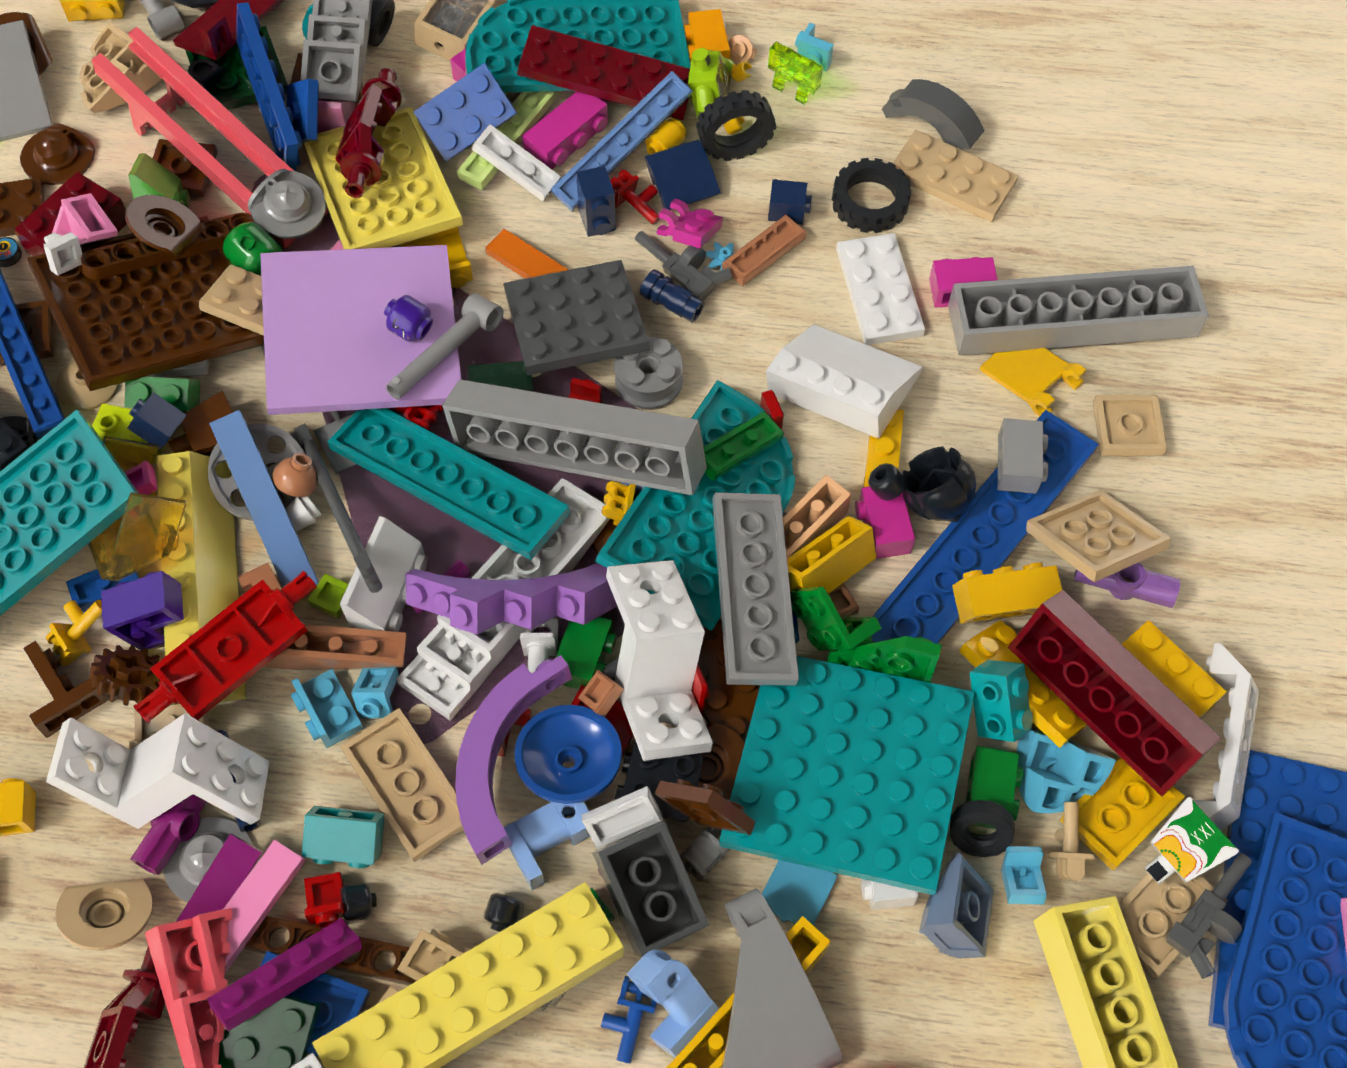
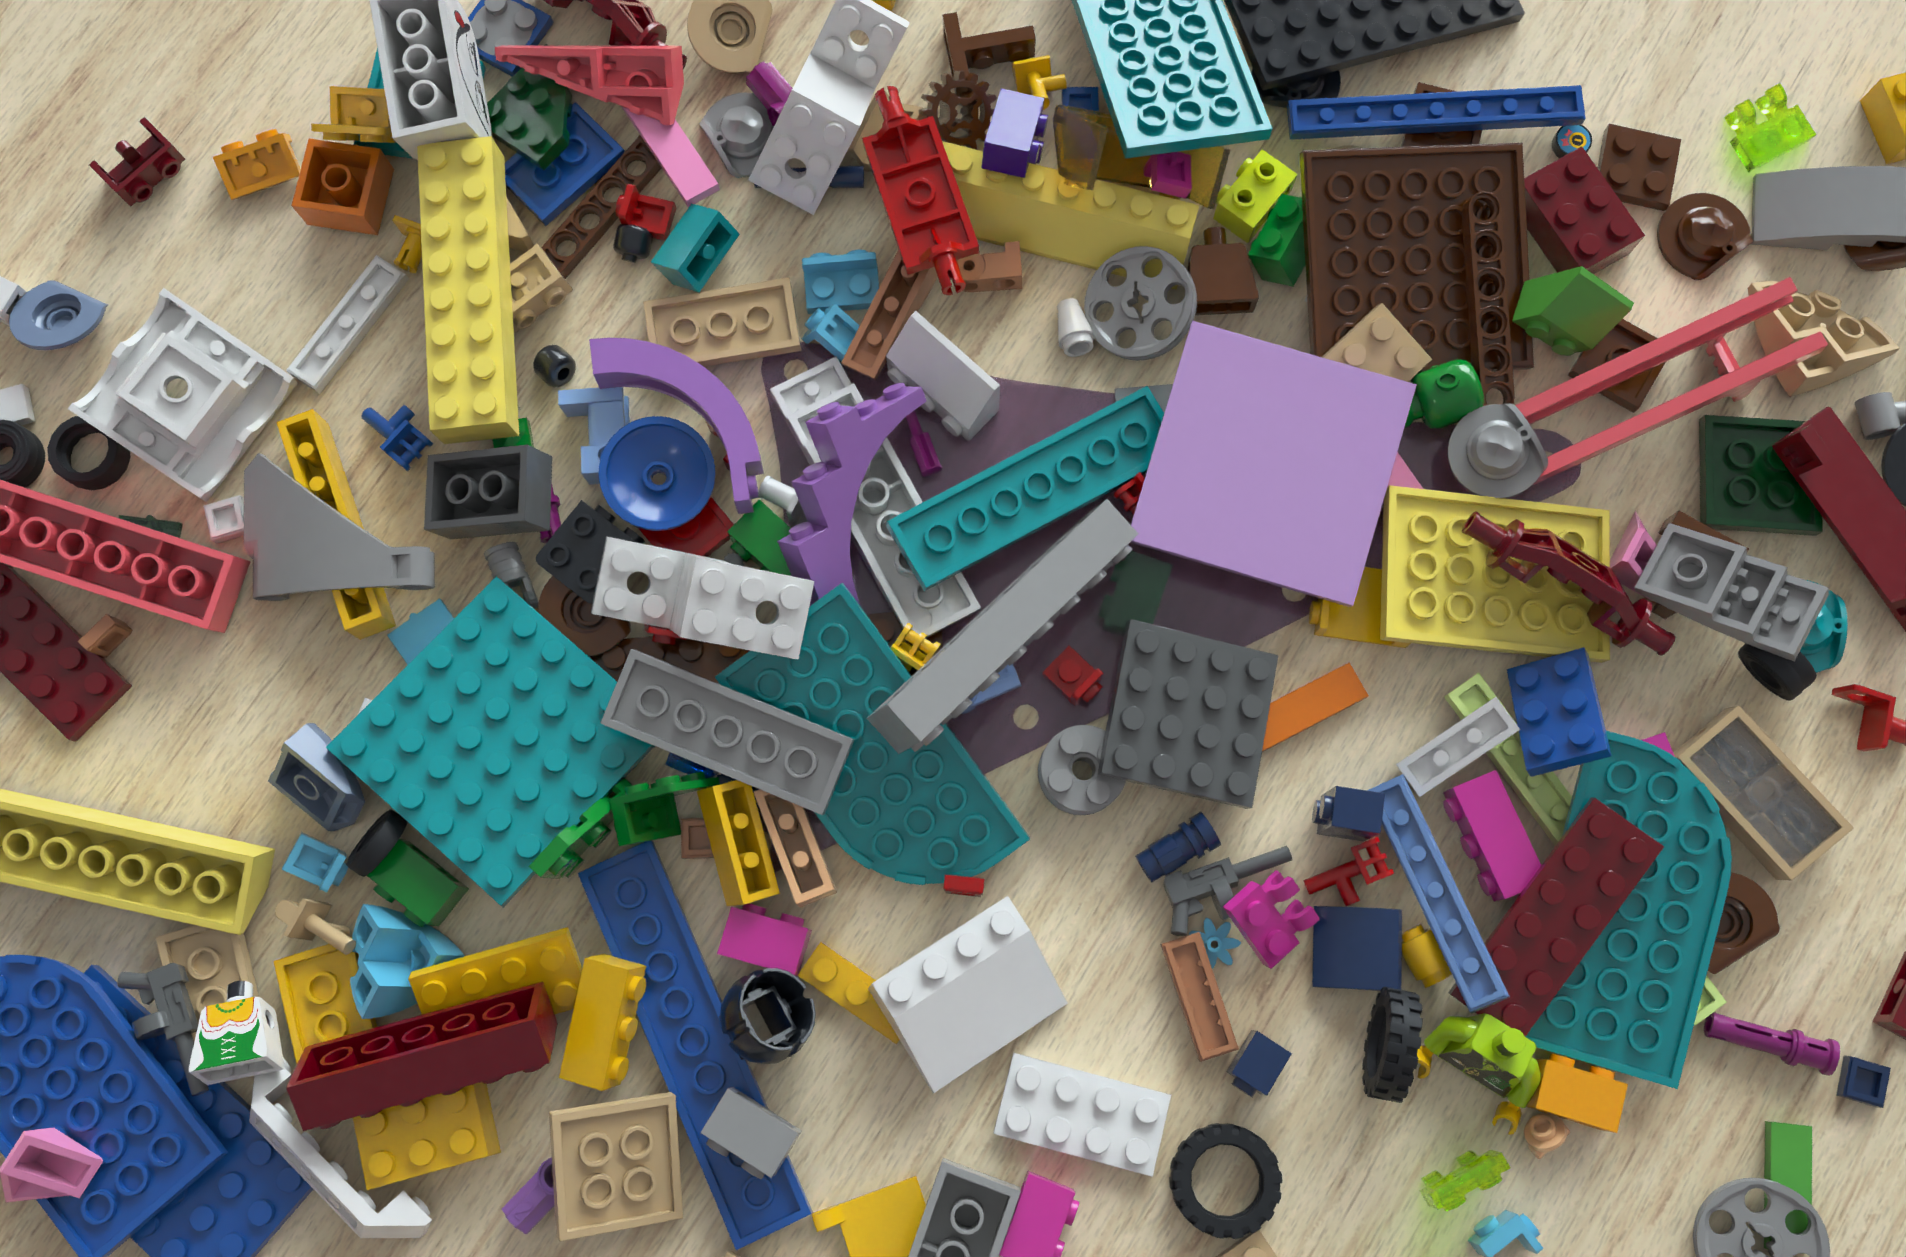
camera: 120 degrees right, 15 degrees up
(62, 252) = (1505, 174): white tile -> none
(84, 219) = (1546, 209): bright pink slope -> none
(155, 420) = (1238, 211): dark blue brick -> none
(163, 223) = (1502, 290): hat -> none
(205, 72) = (1761, 428): black tile -> none
(222, 878) = (705, 128): magenta tile -> none
(262, 497) = (1092, 292): medium blue tile -> none
(268, 93) = (1698, 483): blue plate -> none
(284, 974) = (581, 148): magenta plate -> none
(295, 476) = (1107, 331): nougat brick -> none
(303, 101) = (1634, 512): blue plate -> none
(305, 440) = (933, 340): dark grey hinge -> none
(328, 596) = (962, 328): lime plate -> none
(408, 318) = (1249, 511): dark purple head -> none
(476, 313) = (1229, 600): light grey piece -> none
(601, 693) = (706, 534): nougat tile -> none
(622, 817) = (565, 495): white tile -> none
(681, 995) = (380, 467): light blue piece -> none
(706, 806) = (517, 565): reddish brown plate -> none
(740, 445) = (926, 816): green tile -> none
(887, 482) = (789, 951): black piece -> none
(1001, 700) = (483, 933): teal brick -> none

